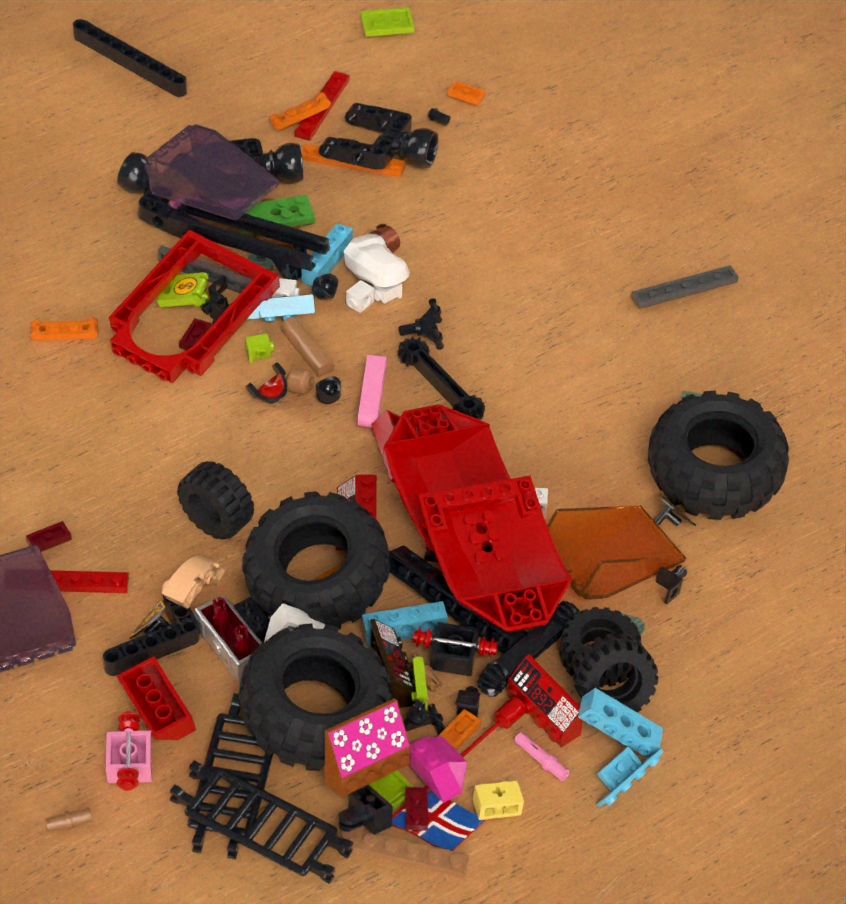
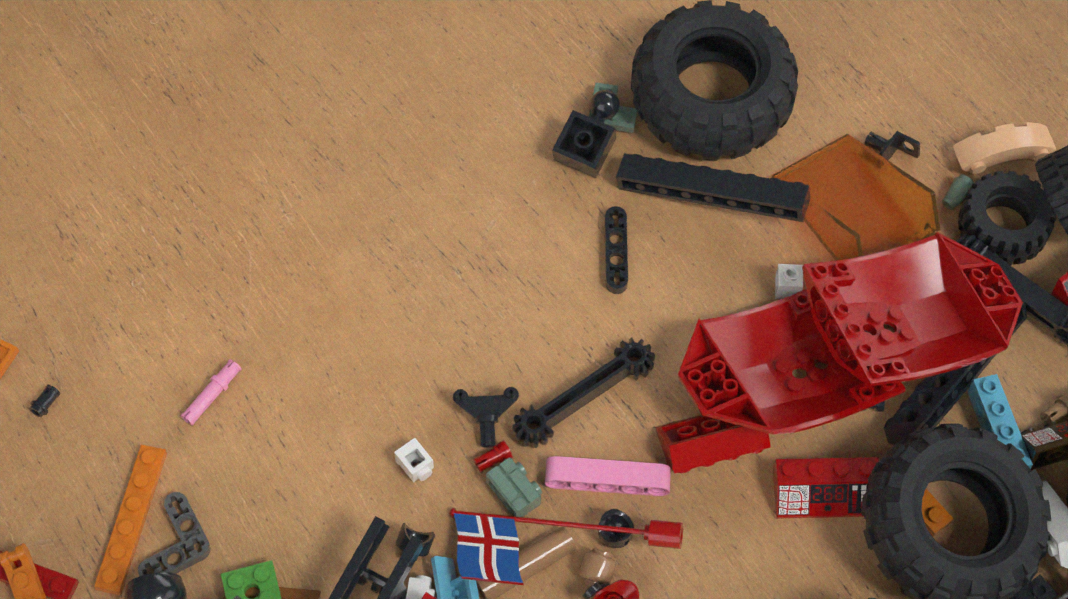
camera: 90 degrees left, 15 degrees up
(321, 323) = (491, 543): none -> flag
(335, 189) = (188, 540): none -> dark grey beam
(339, 239) = (342, 539): medium azure brick -> none
(360, 296) = (428, 496): white brick -> none
(364, 340) = (514, 488): none -> sand green brick
(373, 259) = (372, 473): white piece -> none
(393, 335) = (498, 454): none -> red pin
(417, 146) = (126, 422): black piece -> none
(449, 195) = (209, 394): none -> bright pink pin
(454, 647) = (1034, 367): black brick -> none
(566, 404) = (616, 250): none -> black beam
(617, 454) = (714, 187): none -> black brick
(660, 382) = (591, 130): none -> black brick
(666, 513) = (786, 138): black shield -> none
(674, 652) = (1004, 145): none -> light nougat brick
(684, 287) = (400, 112): dark grey plate -> none

